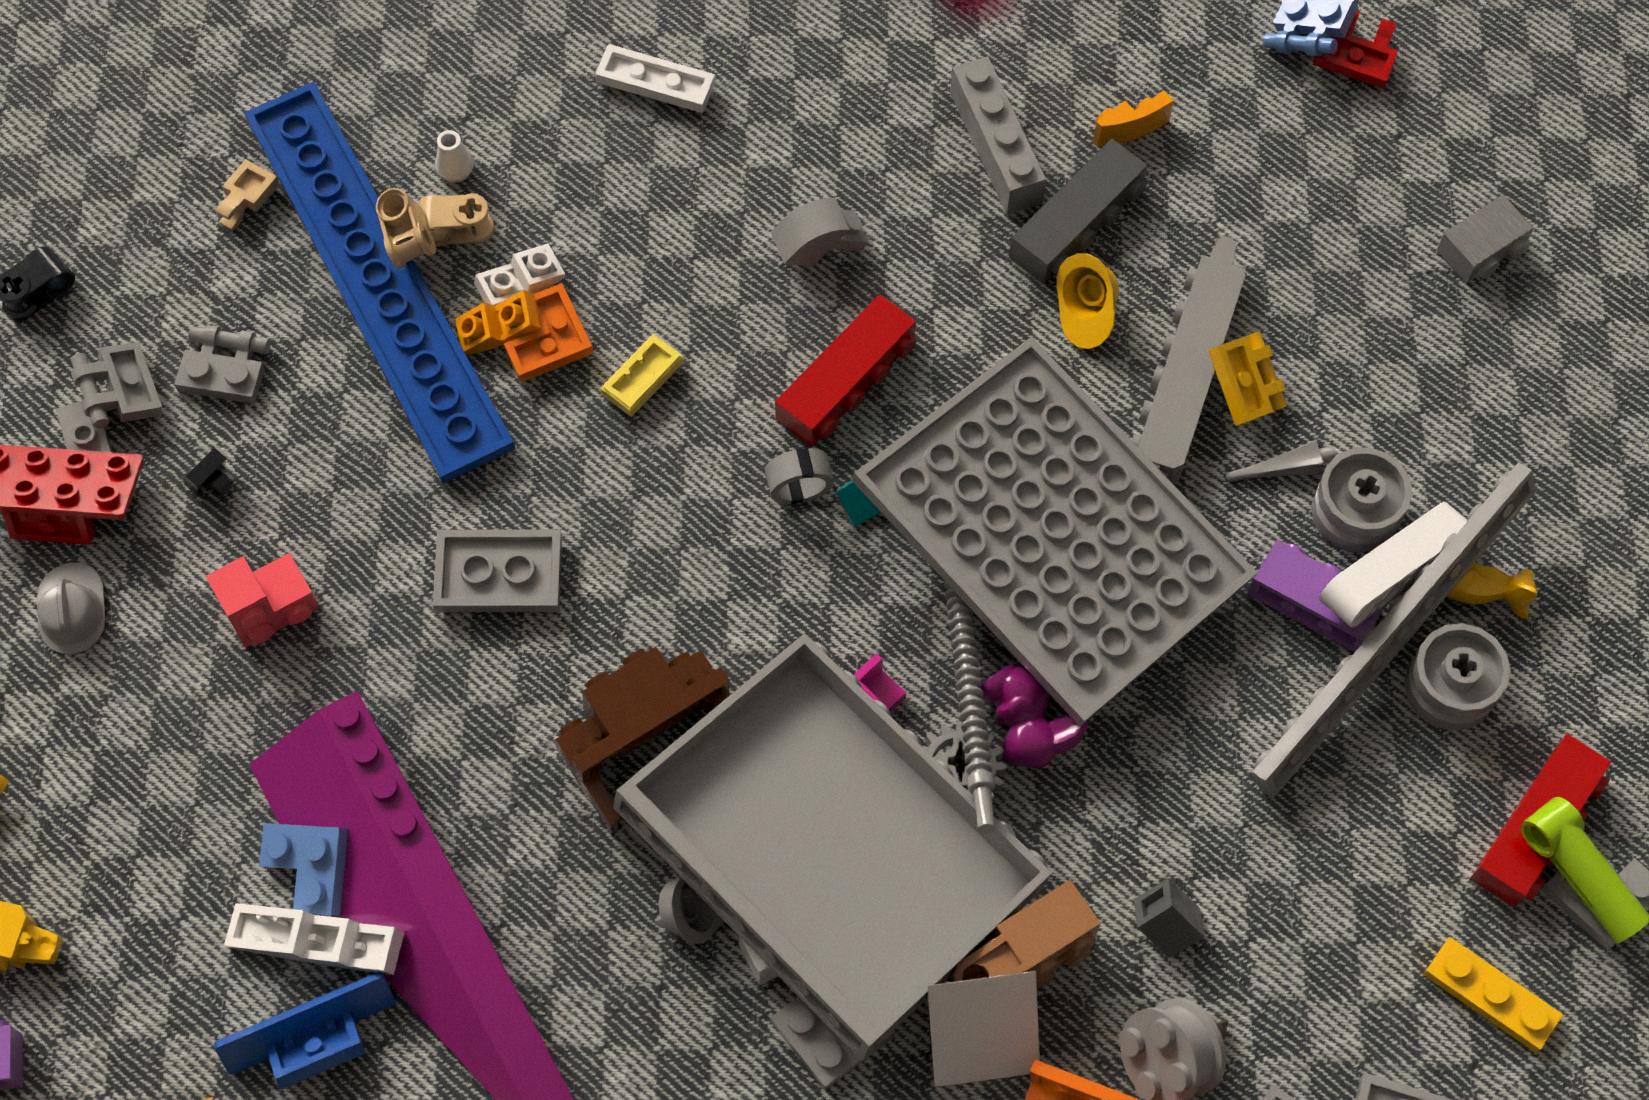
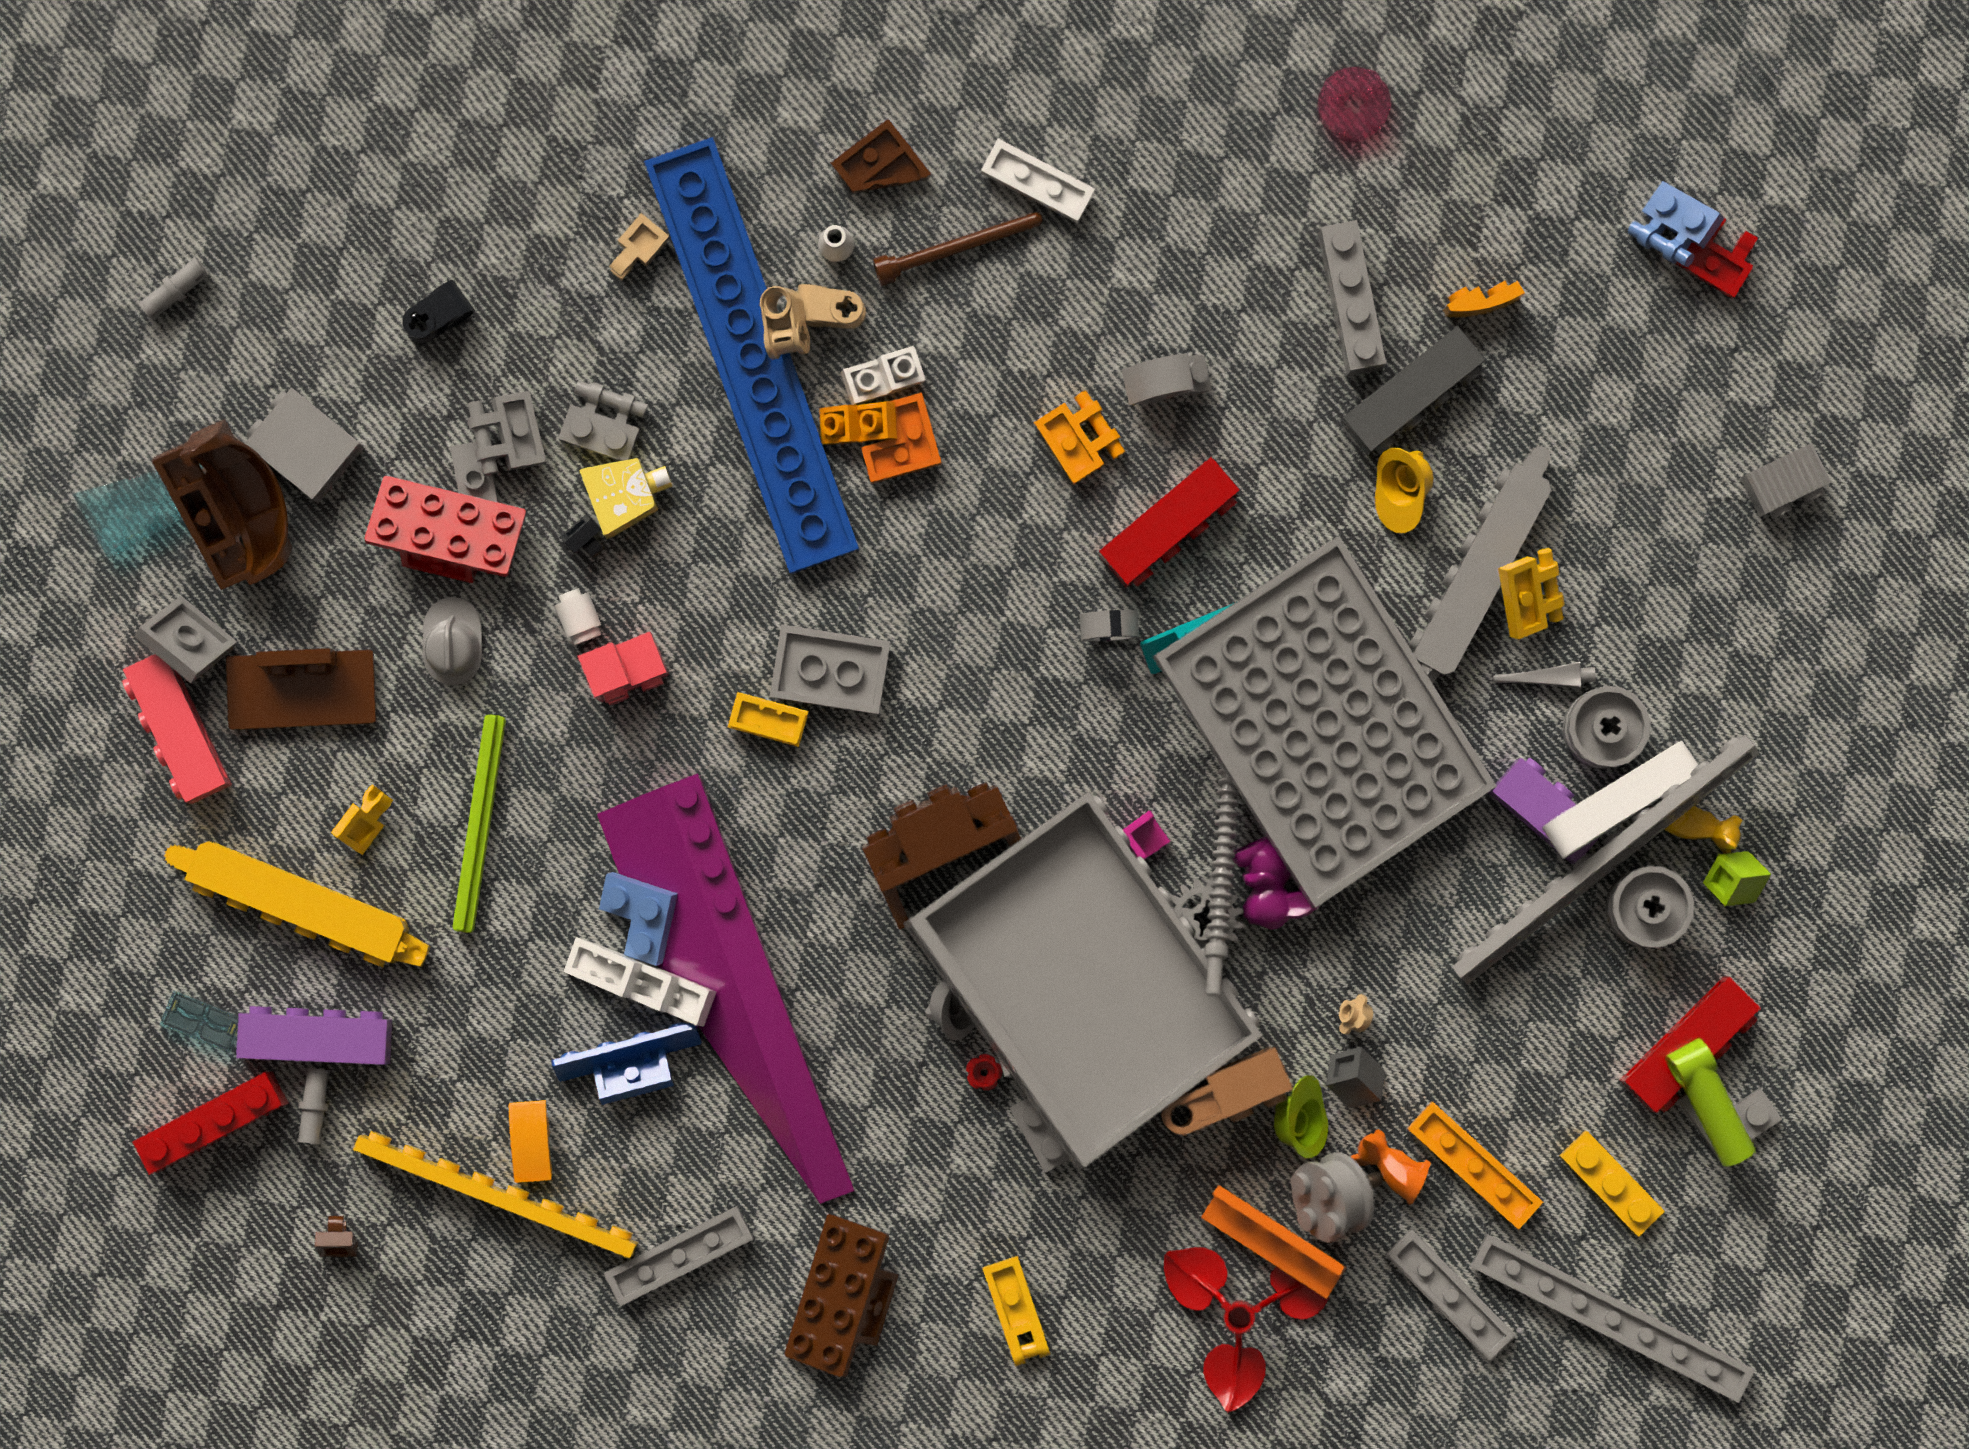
camera: 10 degrees right, 20 degrees up
(112, 797) = (479, 823): none -> lime axle
(206, 552) = (578, 616): none -> white brick
(249, 425) = (623, 493): none -> light yellow torso
(434, 632) = (768, 719): none -> yellow plate
(490, 83) = (880, 161): none -> reddish brown wing
(512, 177) = (890, 267): none -> reddish brown piece
(642, 375) = (983, 496): light yellow plate -> none
(728, 312) = (1069, 442): none -> light orange plate
(734, 970) = (986, 1062): none -> red plate
(983, 1028) = (1182, 1154): white sticker -> none
(1115, 969) = (1303, 1118): none -> lime piece
(1153, 847) = (1355, 1015): none -> tan plate
(1241, 1013) = (1398, 1170): none -> orange animal
(1330, 997) = (1475, 1165): none -> light orange plate
(1543, 635) = (1736, 878): none -> lime panel

